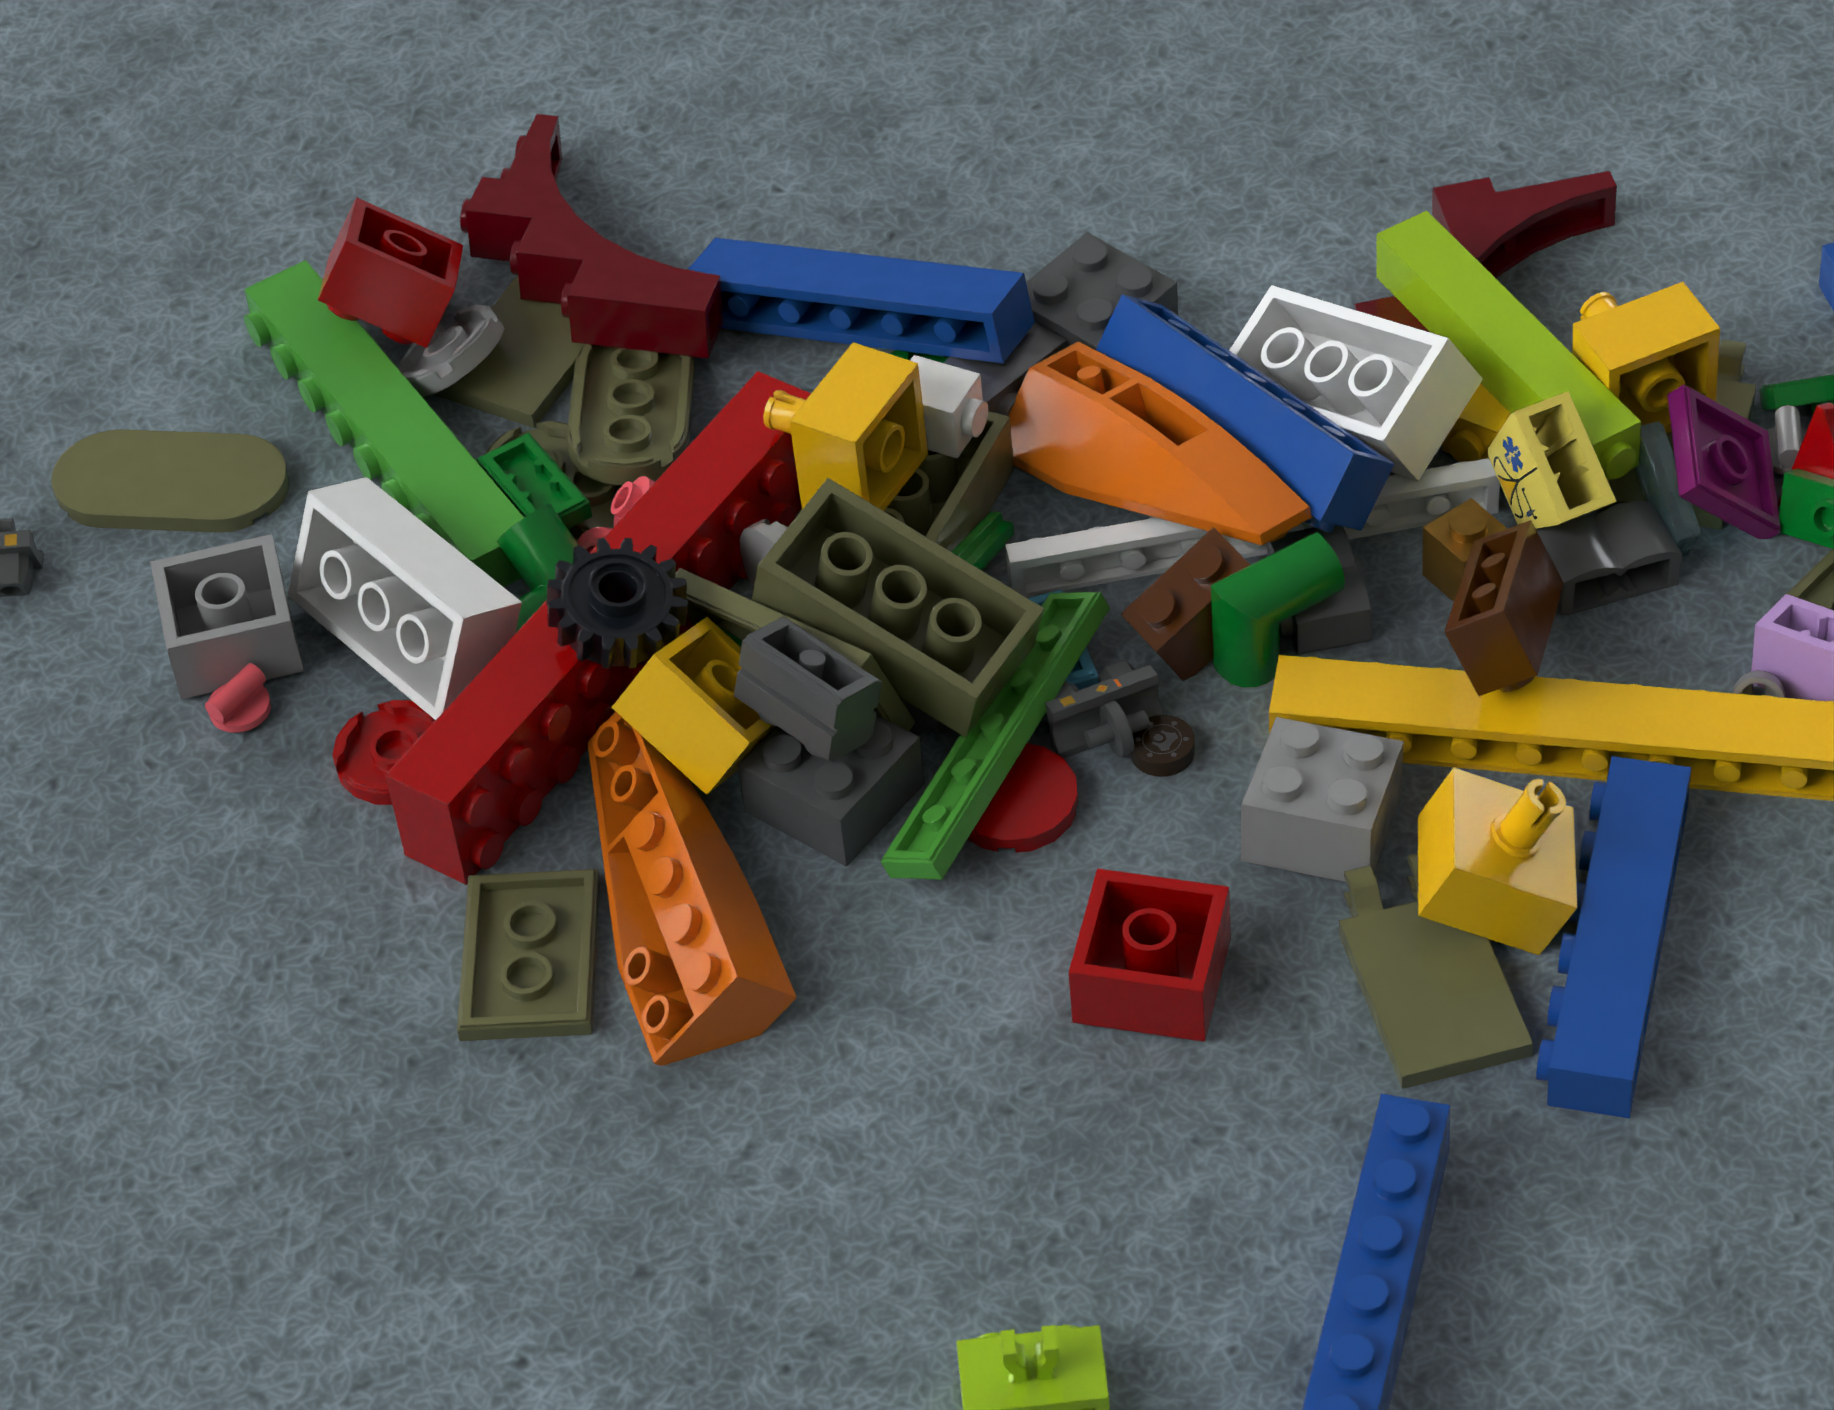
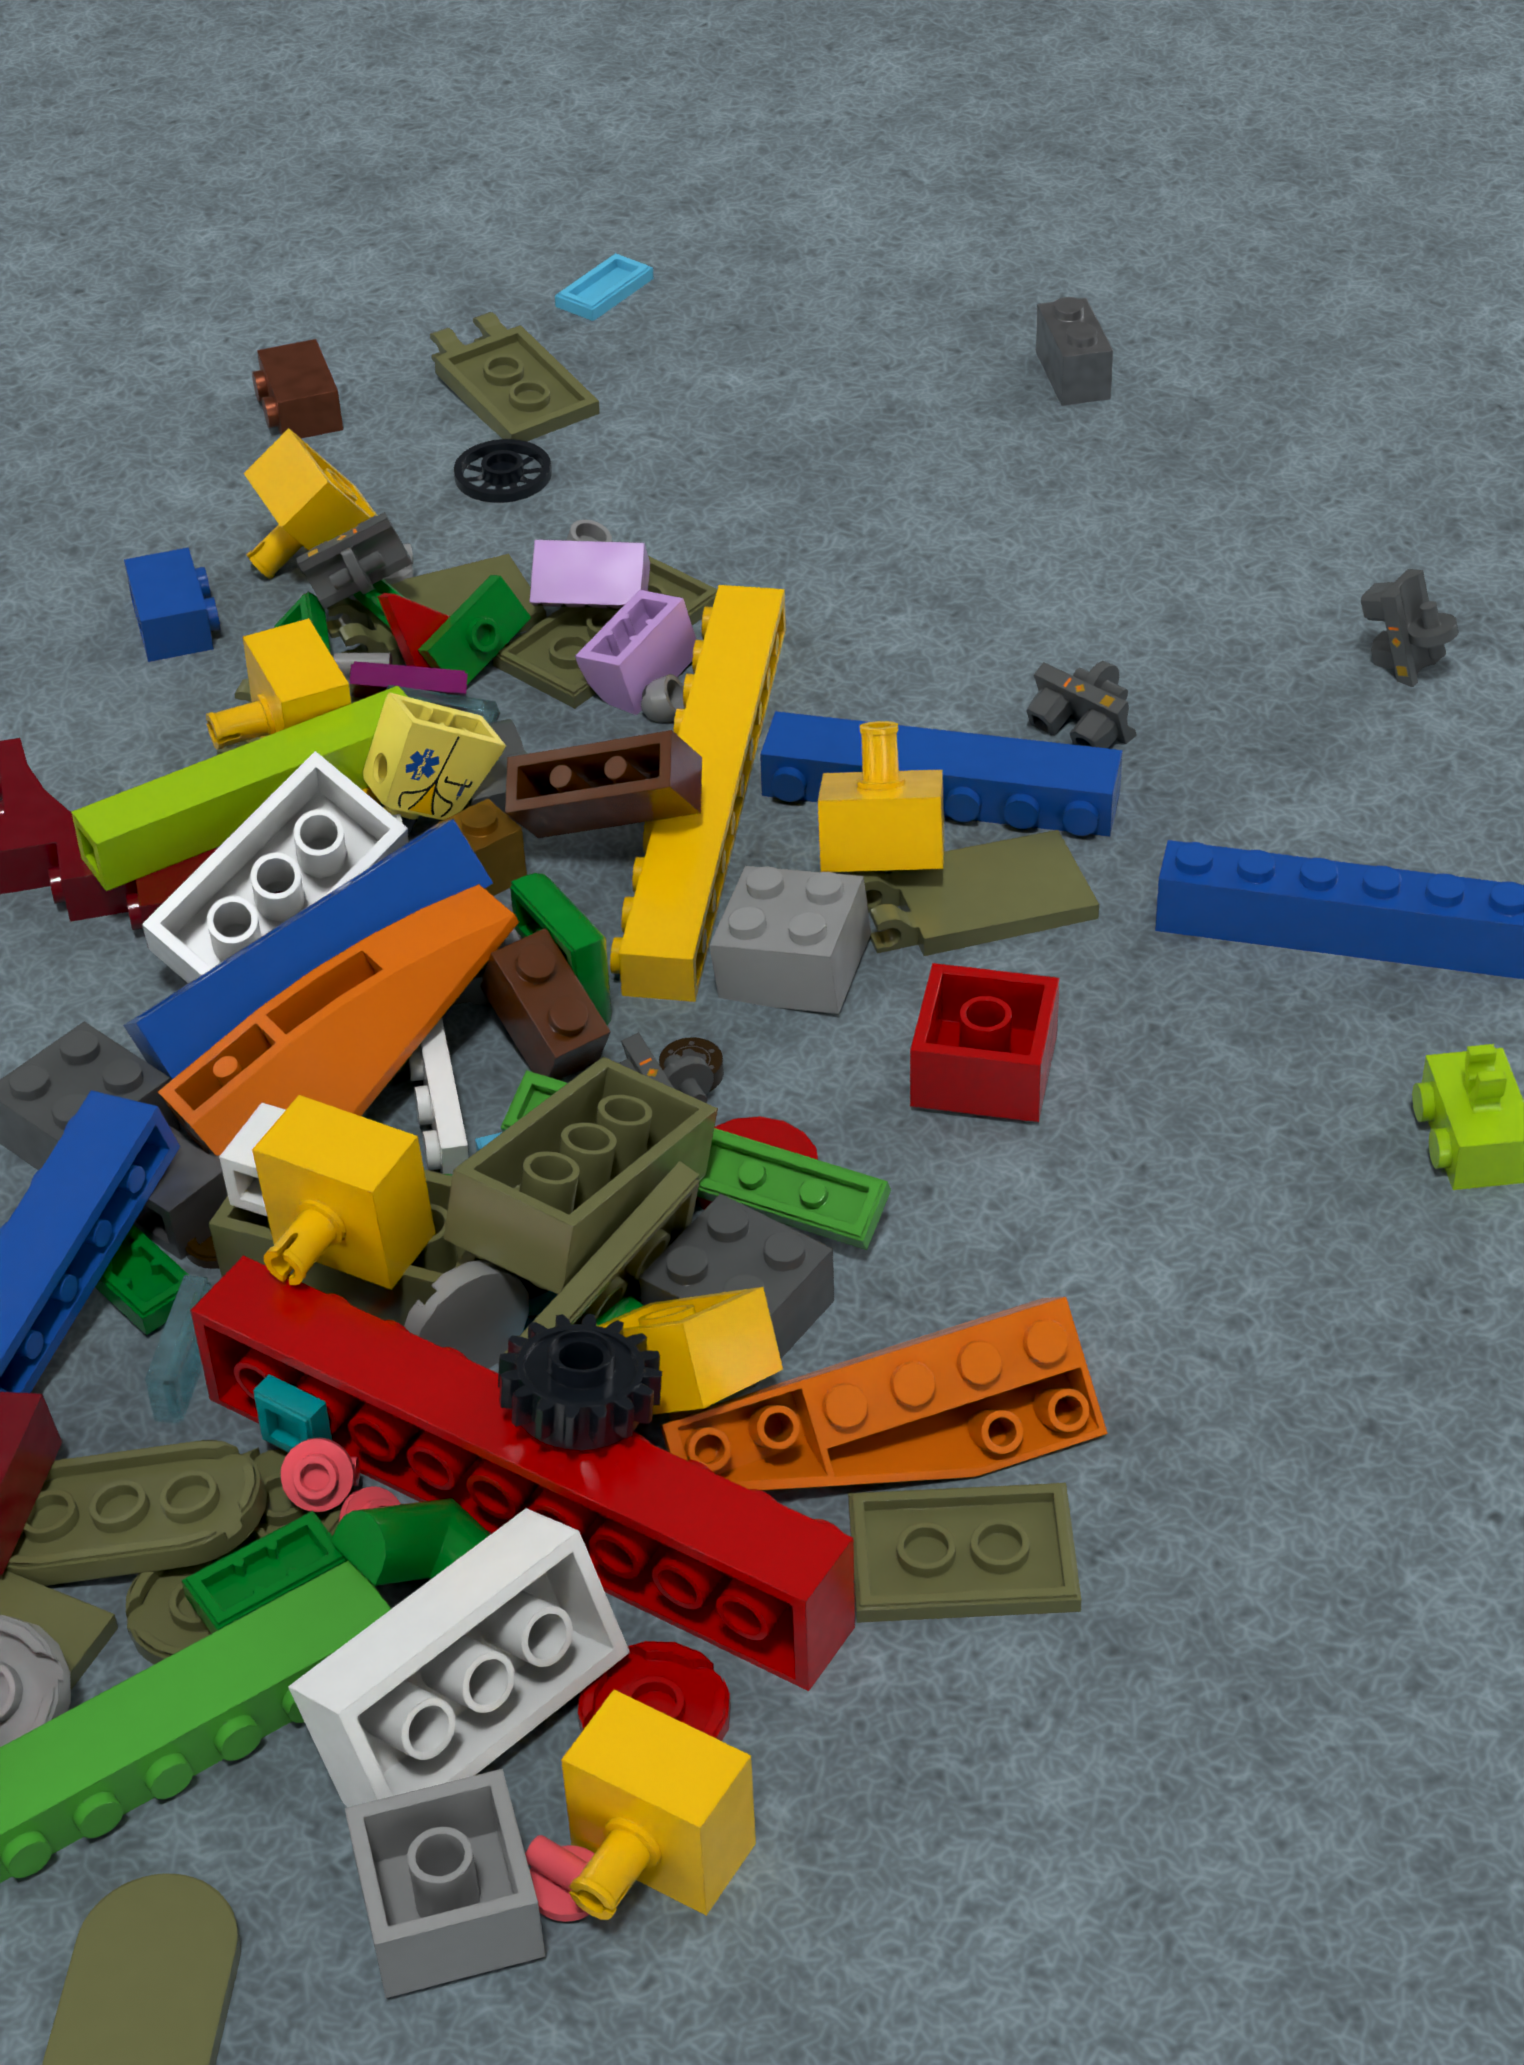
camera: 95 degrees left, 5 degrees down
(257, 726) = (655, 1808): none -> yellow brick
(807, 689) = (710, 1225): dark grey brick -> none
(1765, 1068) = (1086, 697): none -> dark grey hips

